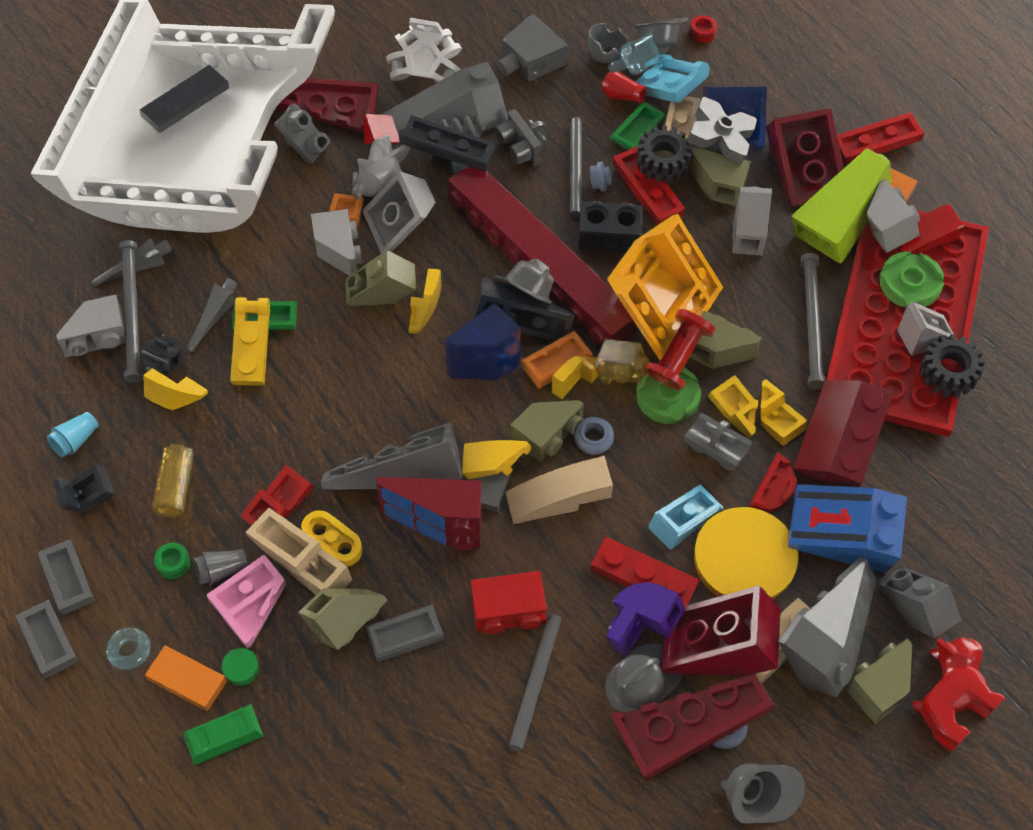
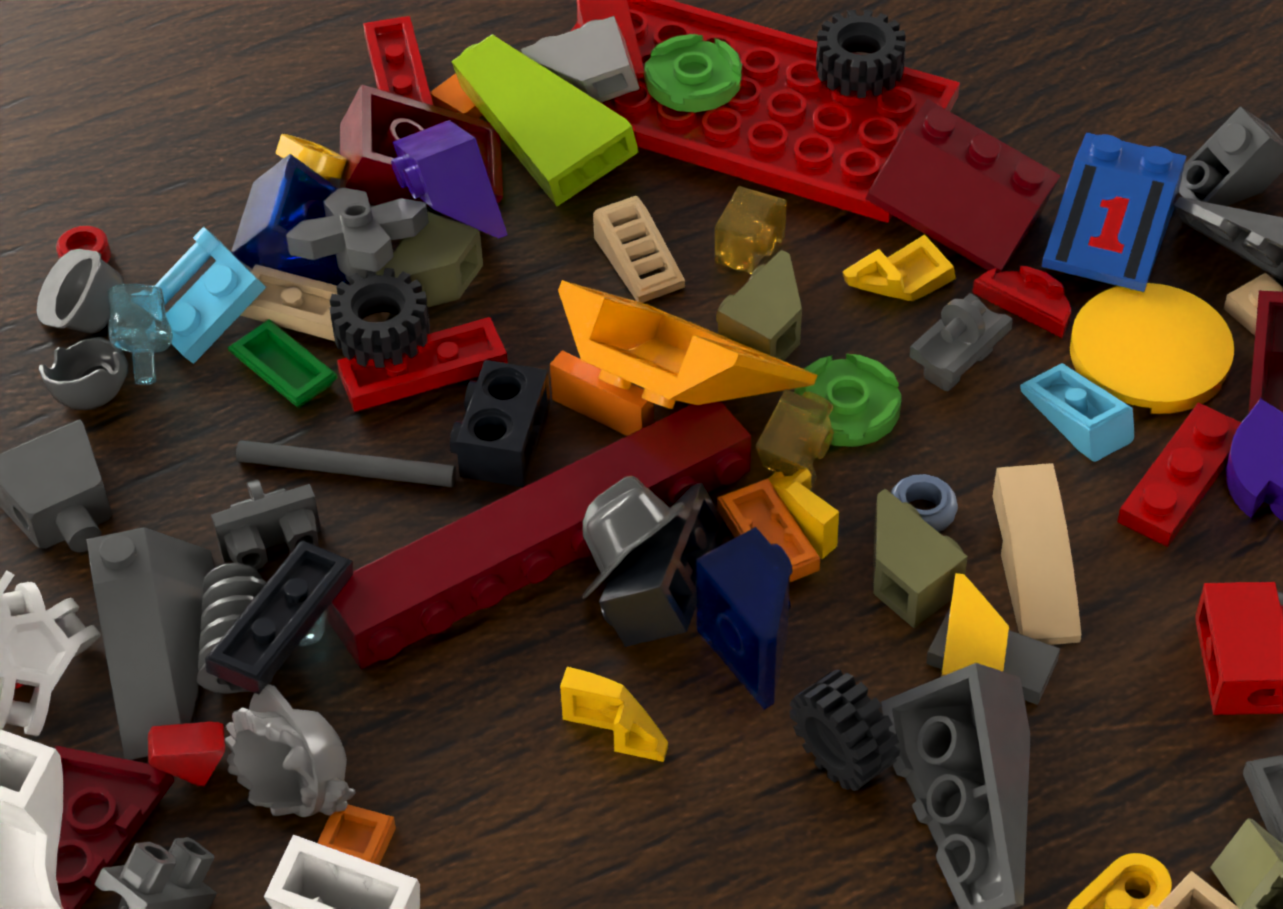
camera: 80 degrees left, 10 degrees down
(335, 240) = (448, 846): light grey slope -> none
(381, 281) = (558, 785): olive slope -> none
(398, 210) = (407, 736): light grey slope -> none
(417, 397) = (844, 730): none -> black tyre
(435, 508) = (1092, 699): dark red slope -> none
(600, 176) = (386, 424): sand blue plate -> none
(621, 87) = (195, 366): red cone -> none
(680, 349) = (805, 340): red hose -> none
(736, 405) = (880, 320): yellow slope -> none
(751, 220) = (546, 231): light grey slope -> none
(767, 160) = (449, 175): none -> dark purple slope
(774, 261) = (623, 223): none -> tan slope
(786, 325) = (749, 229): none -> clear yellow brick
(787, 104) = (315, 156): none -> yellow plate
(809, 263) = (718, 201): dark grey bar -> none
(921, 327) = (797, 72): light grey slope -> none

